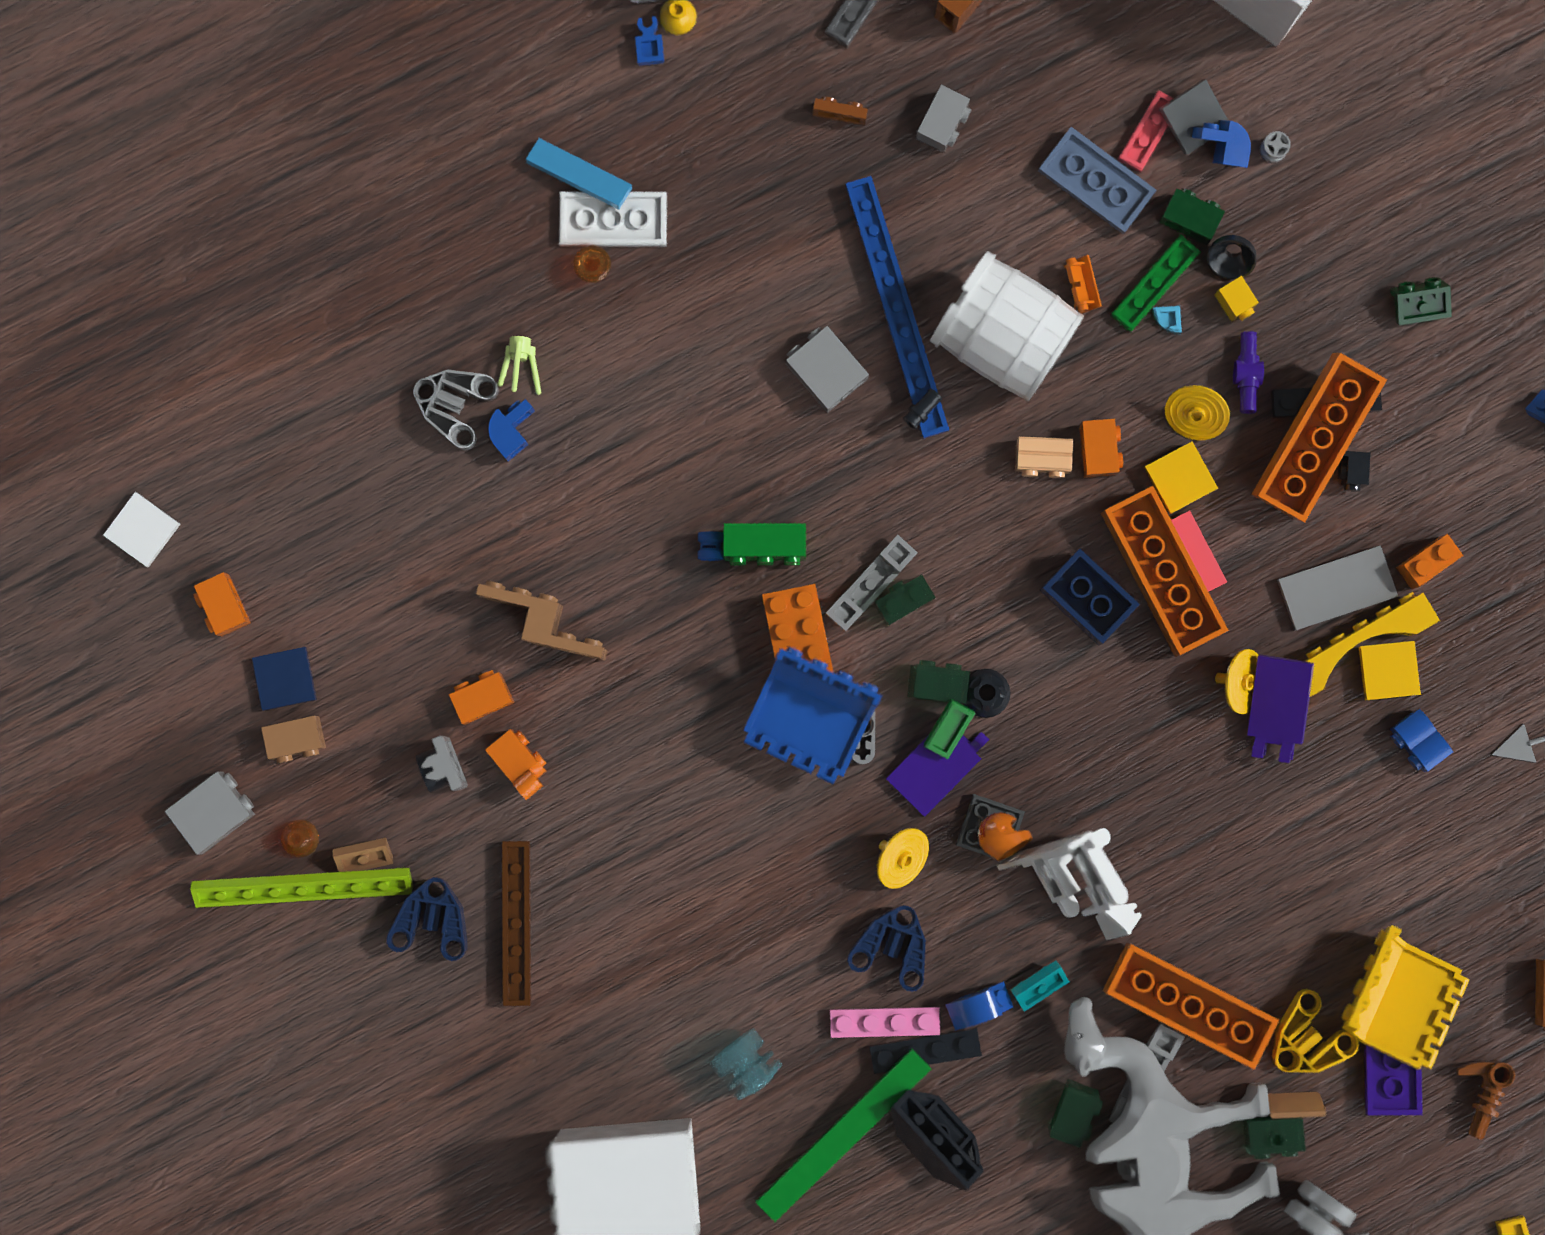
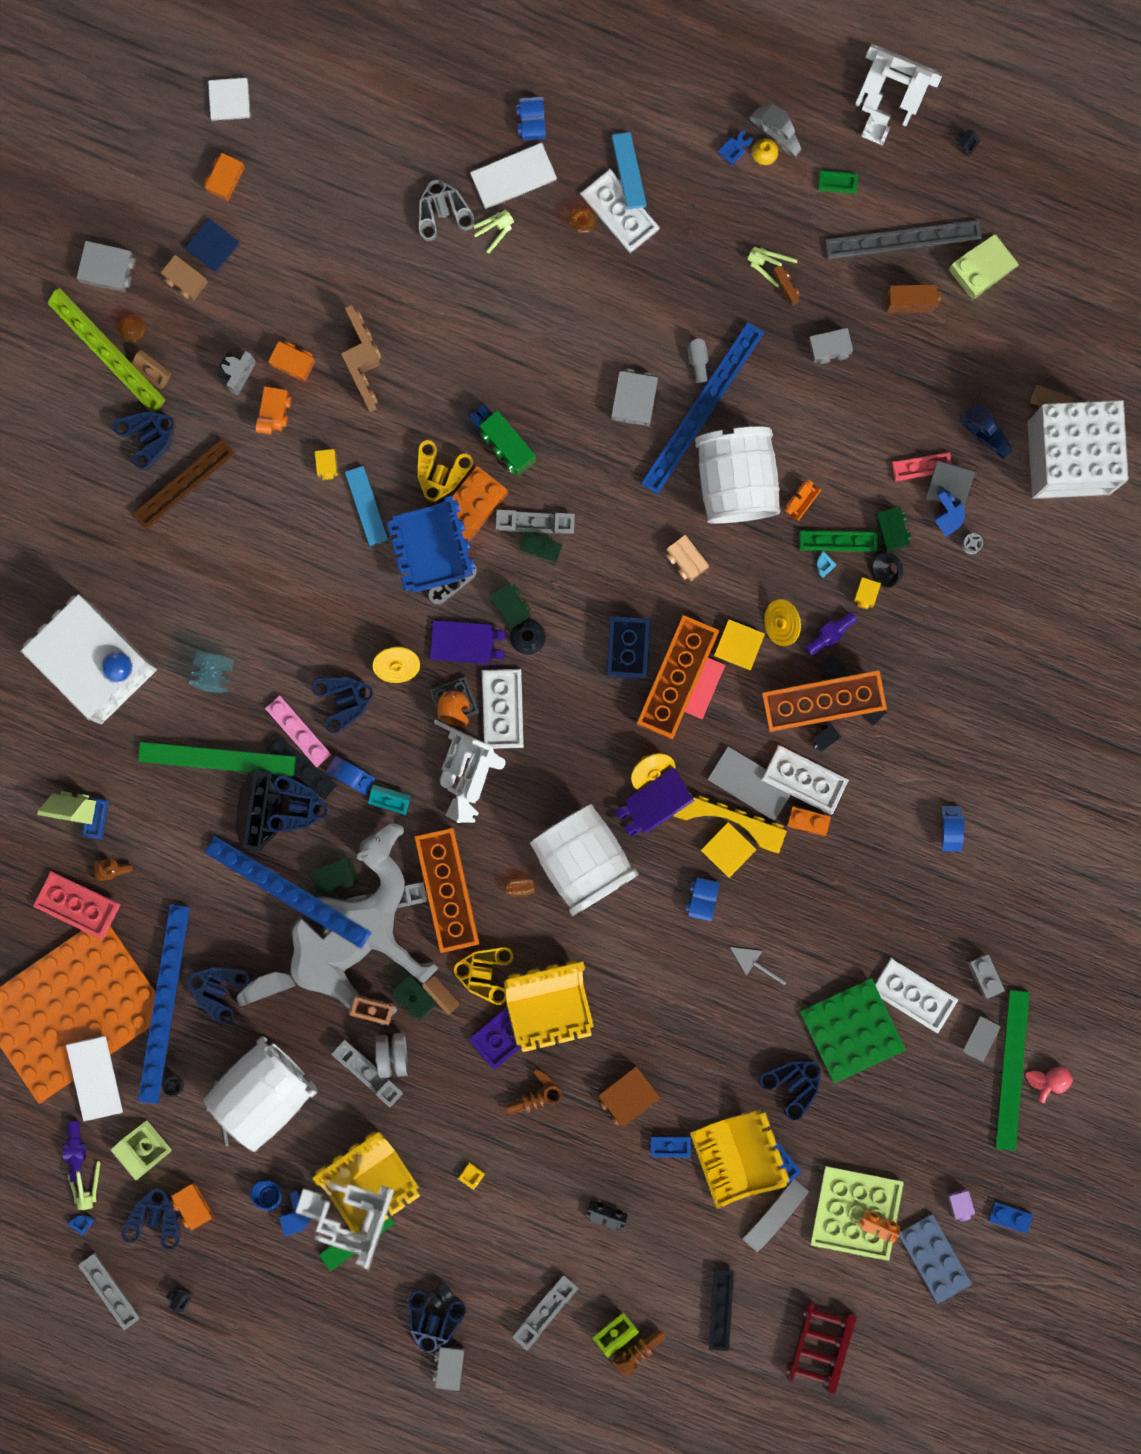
camera: 50 degrees right, 0 degrees up
(436, 227) = (532, 118): none -> blue brick
(480, 298) = (513, 176): none -> white tile
(503, 431) = (450, 248): blue brick -> none
(623, 753) = (326, 464): none -> yellow brick
(666, 1169) = (116, 667): none -> blue hair
(703, 747) = (366, 506): none -> dark azure tile
(716, 653) = (455, 479): none -> yellow connector
(785, 112) = (759, 256): none -> yellowish green plant
(841, 267) = (698, 358): none -> light grey arm
(919, 412) = (655, 468): black pin -> none
(949, 728) = (489, 630): green tile -> none
(983, 1106) = (298, 790): none -> dark blue connector
(1041, 783) = (502, 708): none -> white tile
(1058, 1180) = (288, 892): none -> blue plate
(1097, 180) = (868, 460): sand blue plate -> none
(1100, 448) = (717, 586): orange brick -> none
(1169, 30) = (983, 426): none -> dark blue connector
(1249, 924) = (520, 888): none -> clear orange brick
(1257, 1196) = (371, 1009): none -> nougat brick
(1283, 834) = (583, 859): none -> white piece
(1381, 528) = (805, 780): none -> white tile
(1422, 301) = (953, 697): dark green bracket -> none

